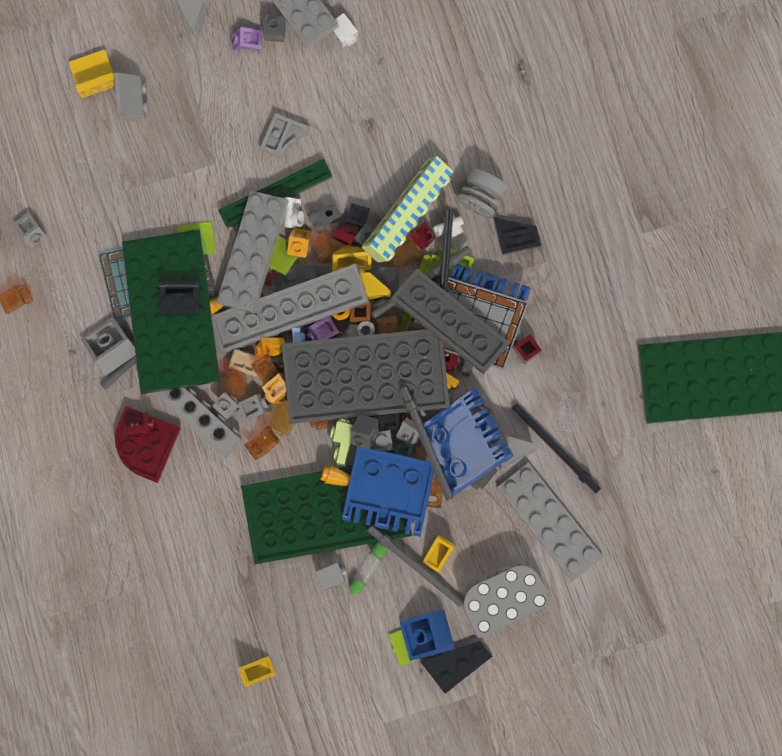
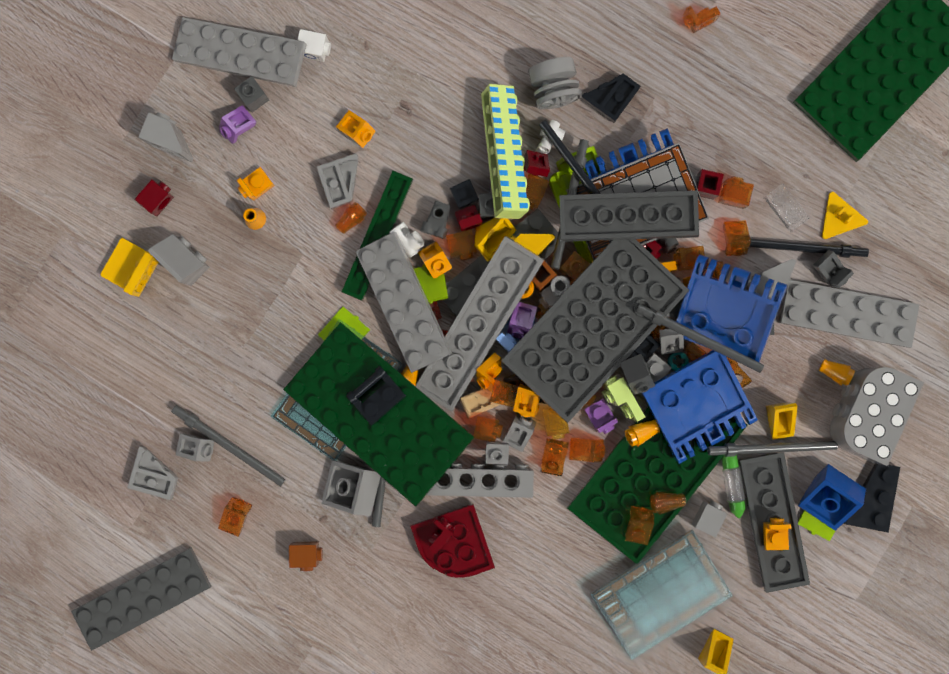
camera: 40 degrees left, 5 degrees up
(38, 364) = (305, 555): none -> dark orange brick
(43, 211) = (192, 421): none -> dark grey bar
(150, 42) = (155, 197): none -> dark red brick
(206, 115) = (258, 221): none -> light orange cone
(224, 90) = (255, 184): none -> light orange bracket
(253, 600) = (661, 594): none -> clear light blue piece
(269, 166) = (351, 217): none -> clear orange cone
(278, 537) = (640, 525): none -> clear orange bracket
(289, 458) = (587, 449): none -> clear orange bracket
(310, 537) = (666, 502): none -> clear orange cone
(318, 444) = (601, 416): none -> medium lavender bracket
(323, 110) = (356, 128): none -> light orange bracket
(365, 625) = (776, 534): none -> light orange bracket
(373, 618) = (768, 497): none -> dark grey plate
(470, 383) = (687, 257): none -> clear orange bracket
(506, 554) = (838, 372): none -> light orange cone
(516, 403) = (736, 238): none -> clear orange bracket
(542, 371) = (735, 192): none -> clear orange brick
(563, 481) = (832, 270): none -> dark grey bracket
(602, 452) = (840, 217): none -> yellow piece
(624, 237) = (701, 20): none -> clear orange bracket

